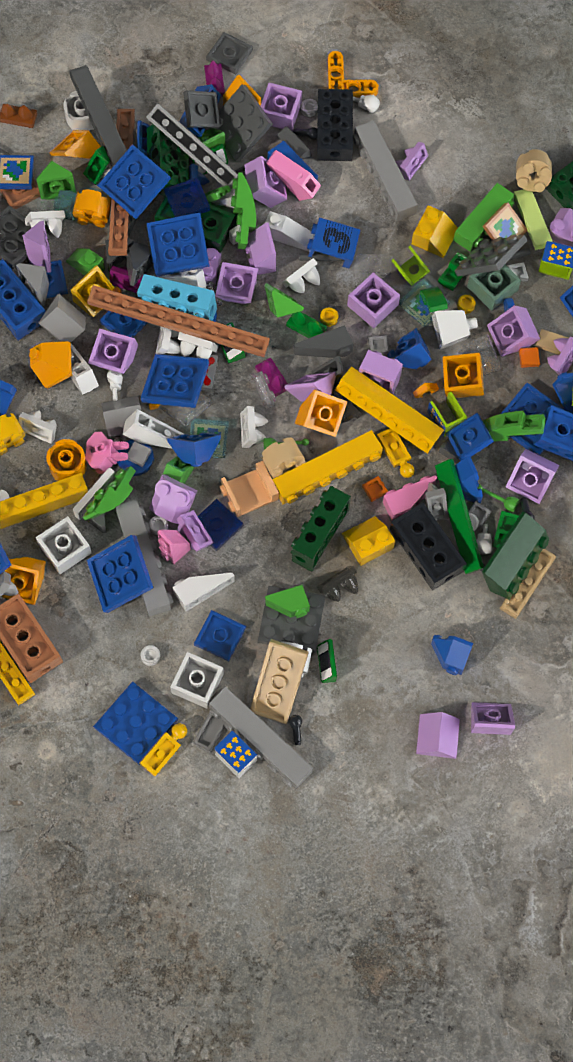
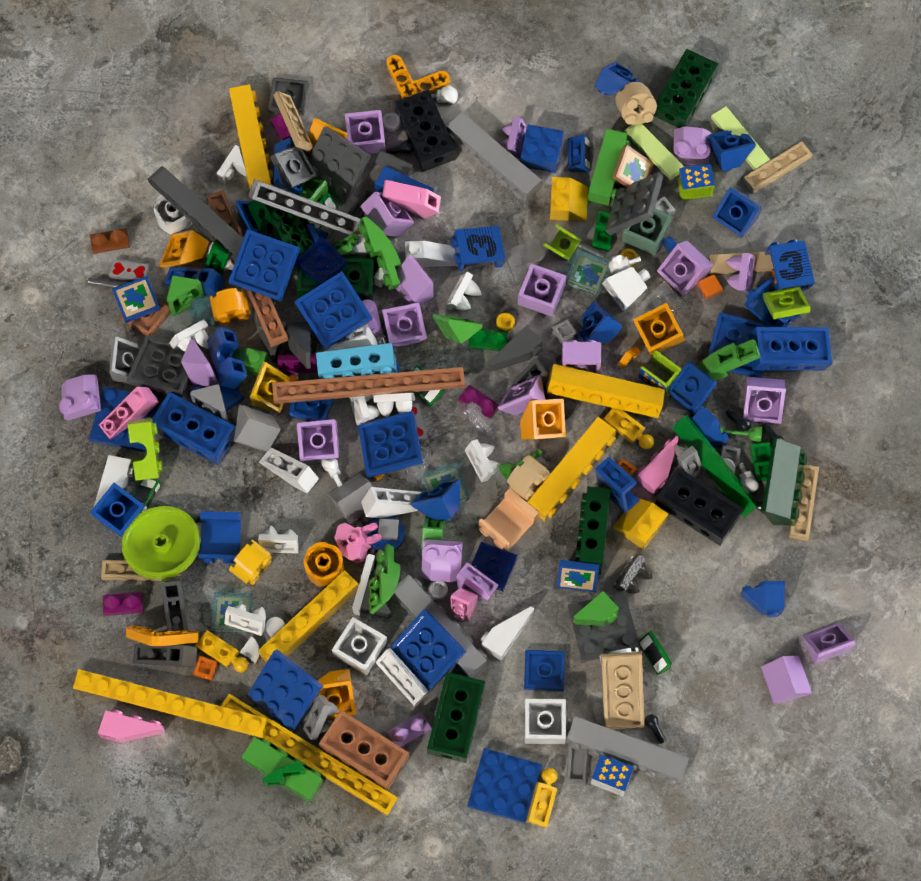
camera: 20 degrees left, 0 degrees up
(21, 146) = (128, 270): none -> light grey tile
(51, 362) = (264, 474): light orange slope -> none
(68, 240) = (229, 371): none -> blue arch
(74, 638) = (409, 730): none -> lavender tile
(82, 176) = (209, 278): none -> blue slope
(89, 588) = (402, 676): none -> white tile
(116, 631) = (448, 705): none -> dark green brick
(150, 655) = (488, 716): white tile -> none
(153, 89) = (232, 163): none -> white slope
(180, 70) = (250, 134): none -> yellow brick
(220, 71) = (293, 121): none -> tan tile
(287, 562) = (577, 575): none -> tile
(361, 494) = (613, 477): none -> blue panel
(431, 179) = (542, 148): none -> blue brick
(434, 299) = (598, 266): green slope -> none
(455, 303) = (621, 263): none -> white piece
(464, 197) = (579, 154): none -> blue slope
(503, 489) = (743, 423): none -> black piece
(522, 141) = (613, 78): none -> blue slope

